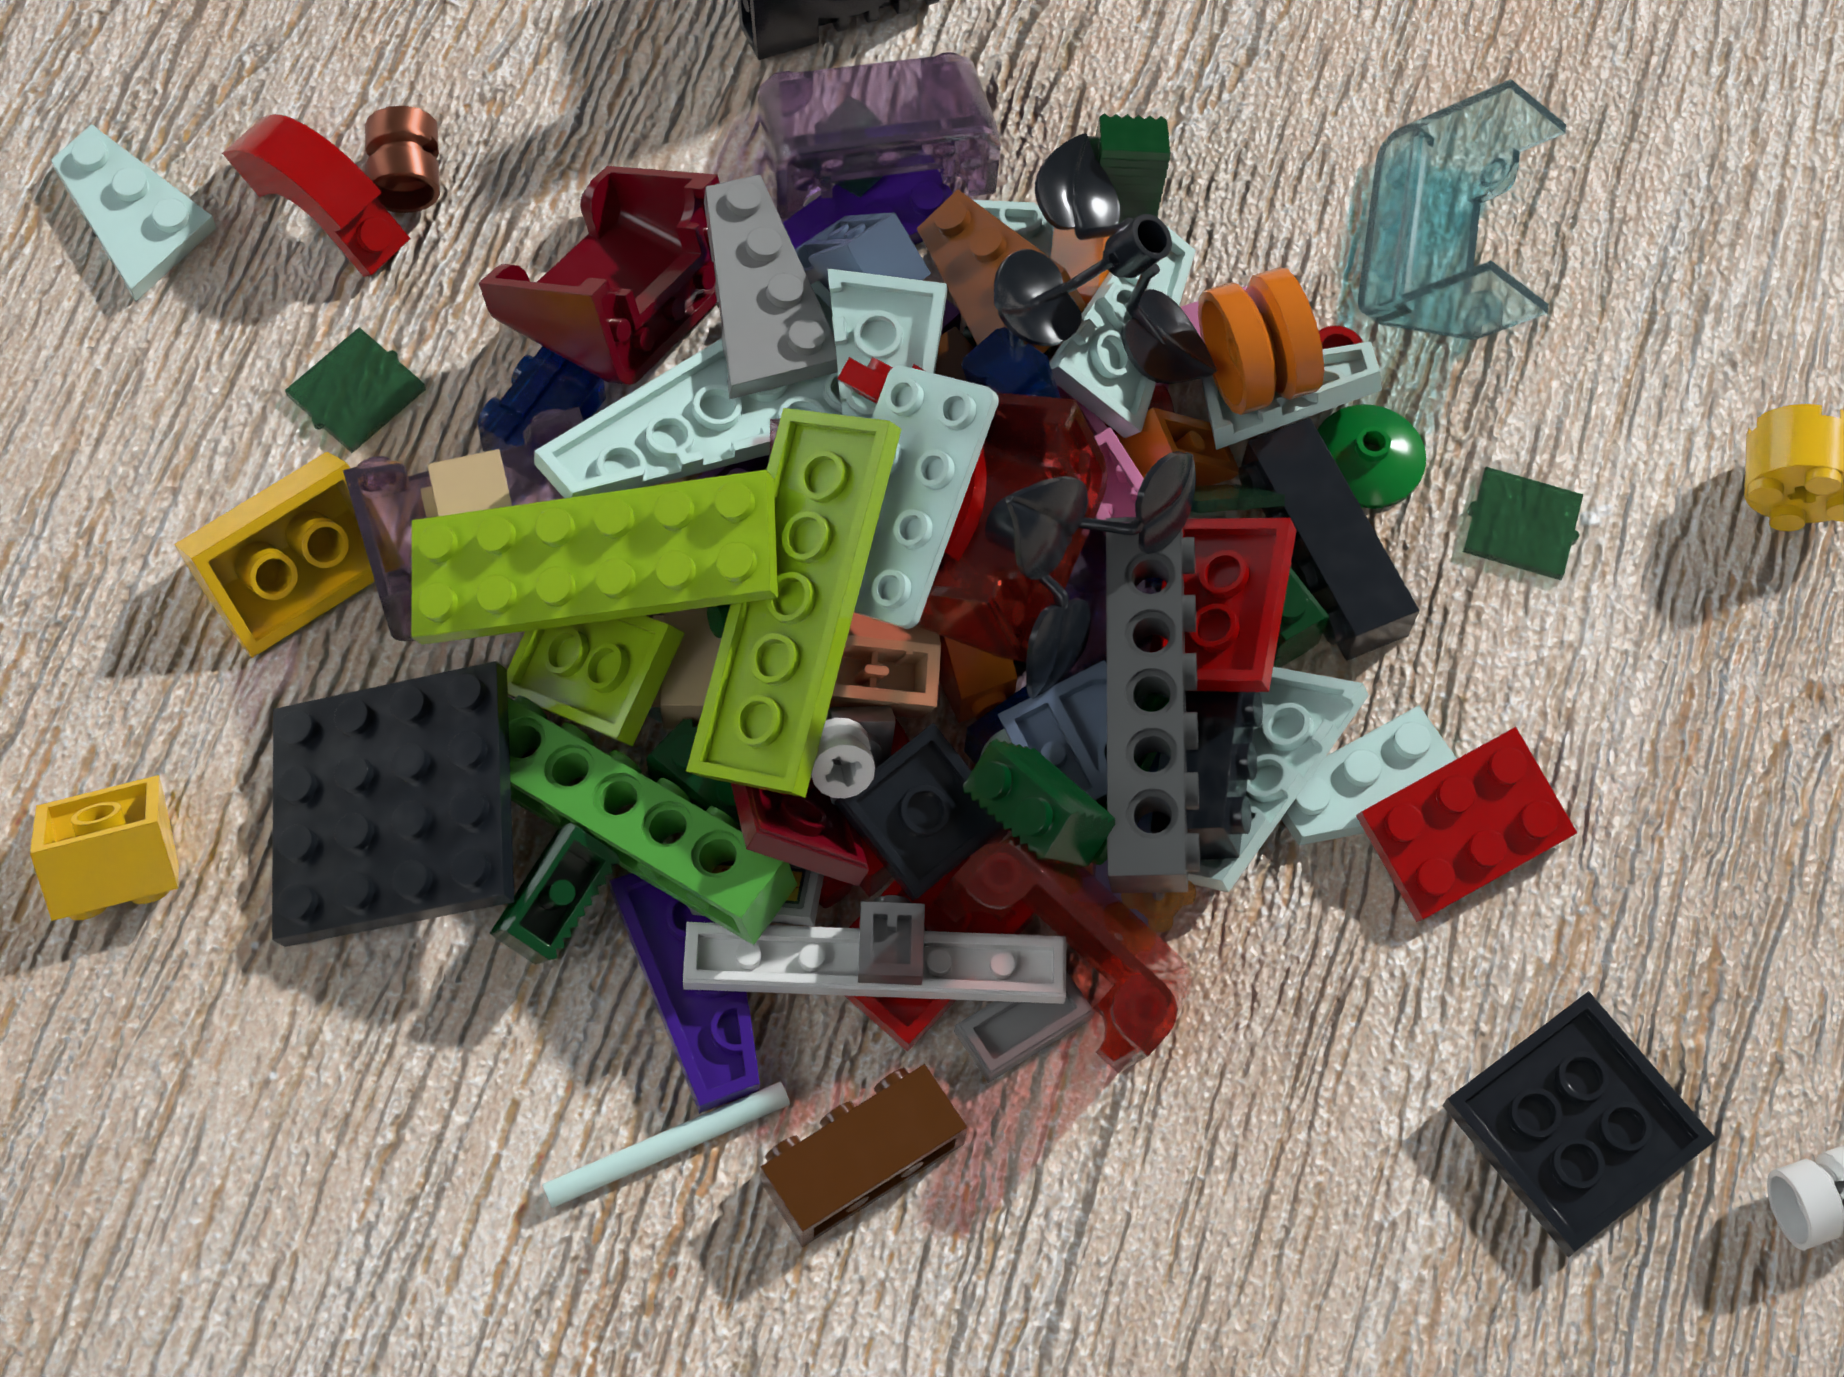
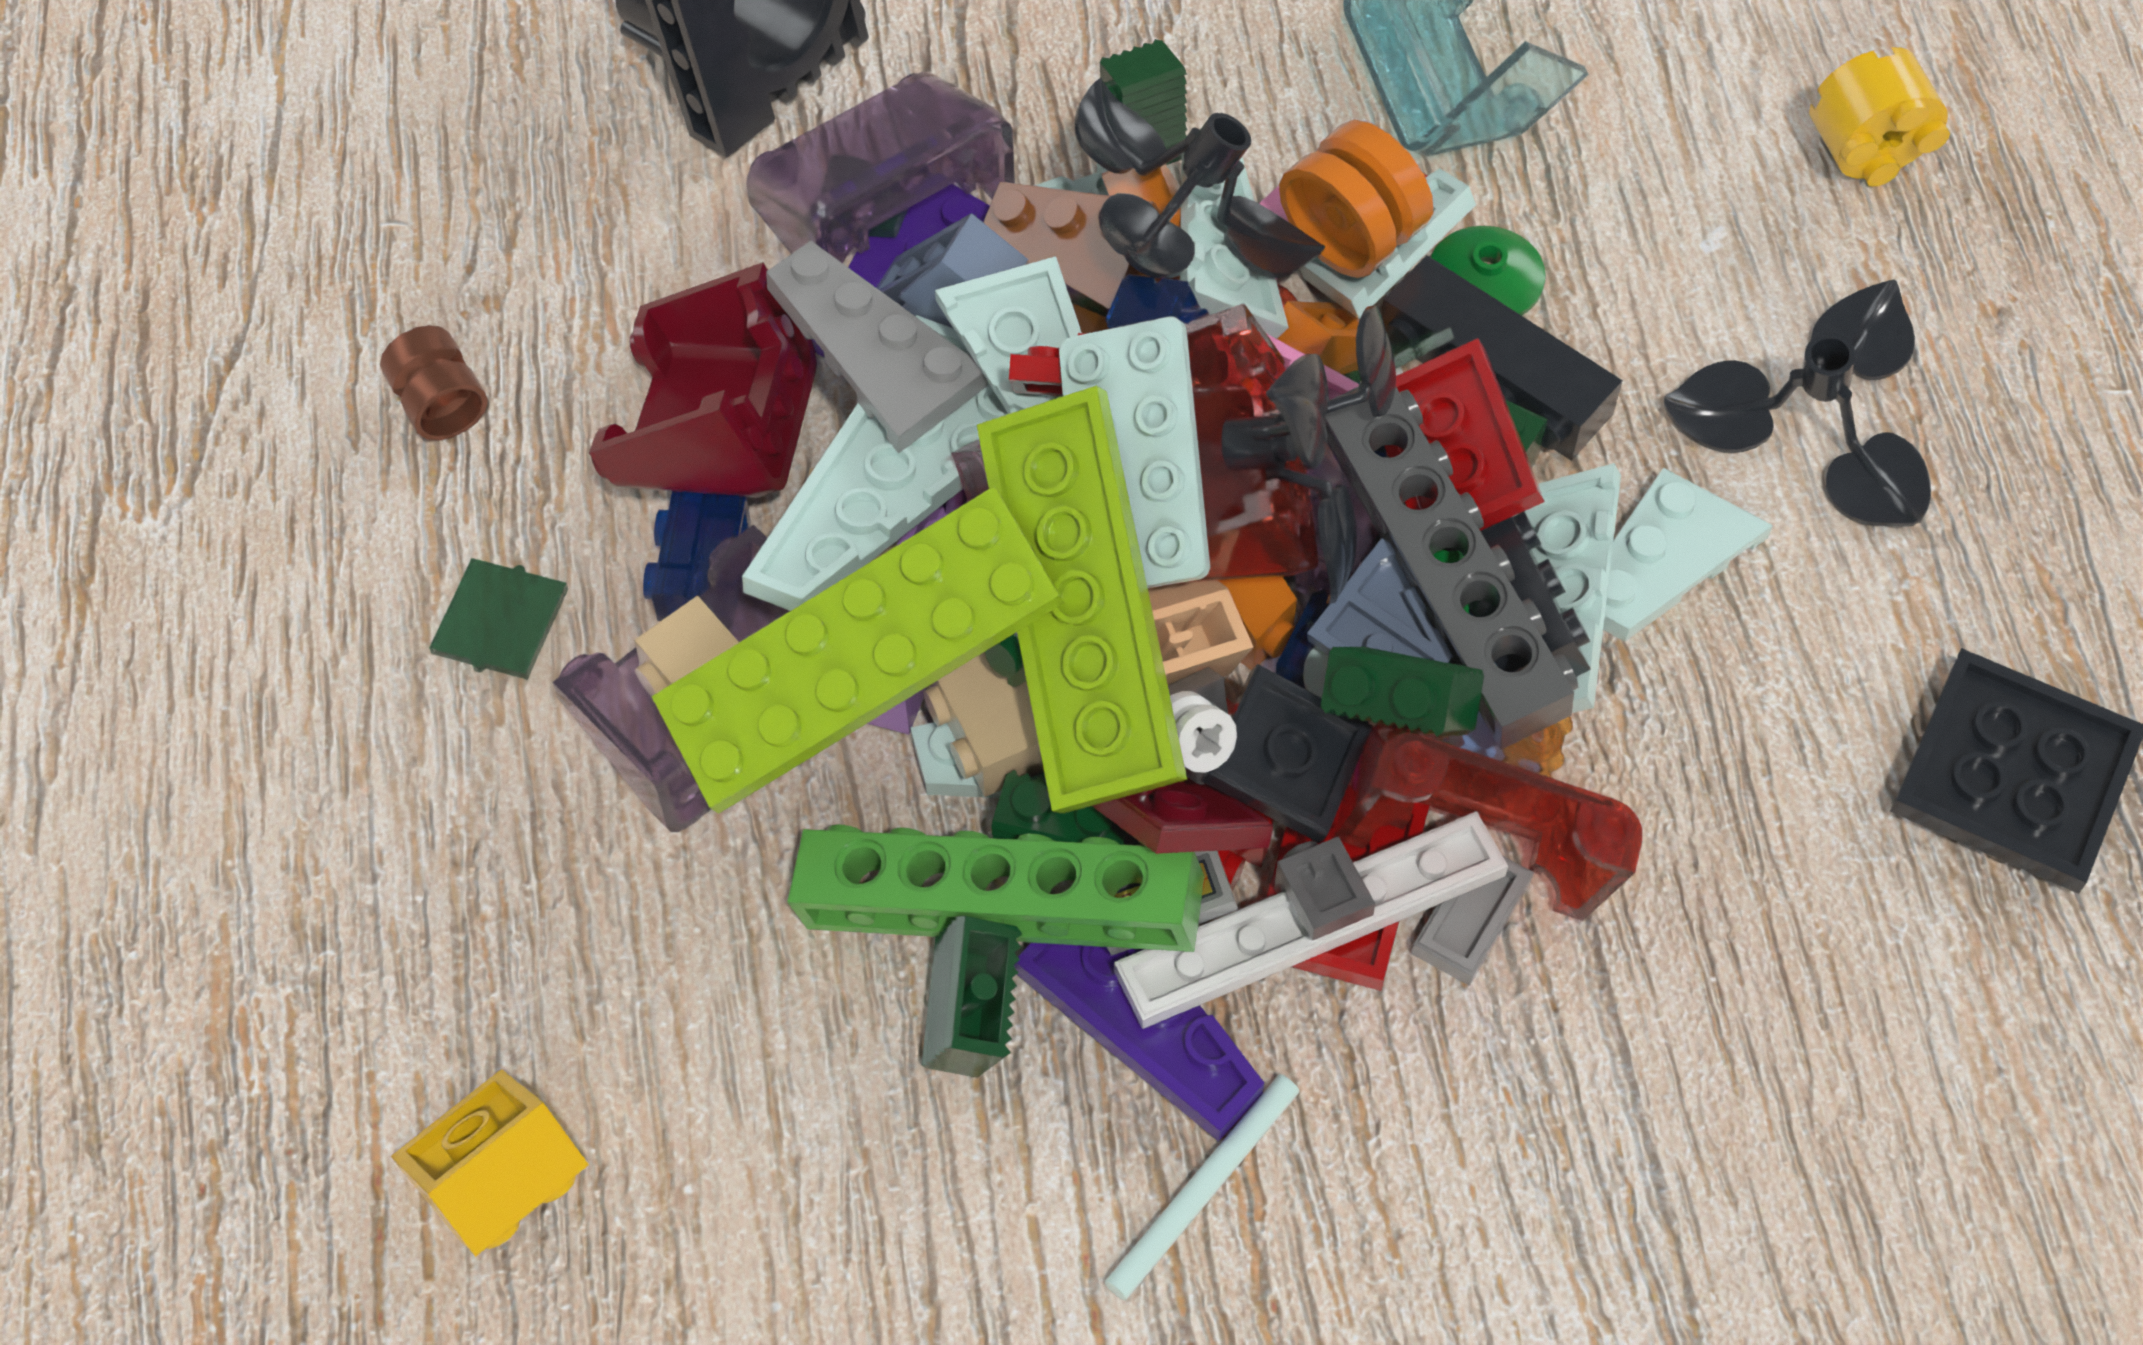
camera: 20 degrees left, 5 degrees down
(131, 209) = (182, 544): light aqua wing -> none
(281, 555) = (517, 799): yellow slope -> none
(309, 170) = (364, 429): red arch -> none
(391, 805) = (762, 986): black plate -> none
(596, 672) = (899, 768): lime plate -> none
(862, 1152) = (1395, 1102): reddish brown brick -> none
(1466, 824) = (1767, 552): red plate -> none
(1523, 523) = (1656, 273): clear green piece -> none
(1678, 663) = (1863, 334): none -> black plant

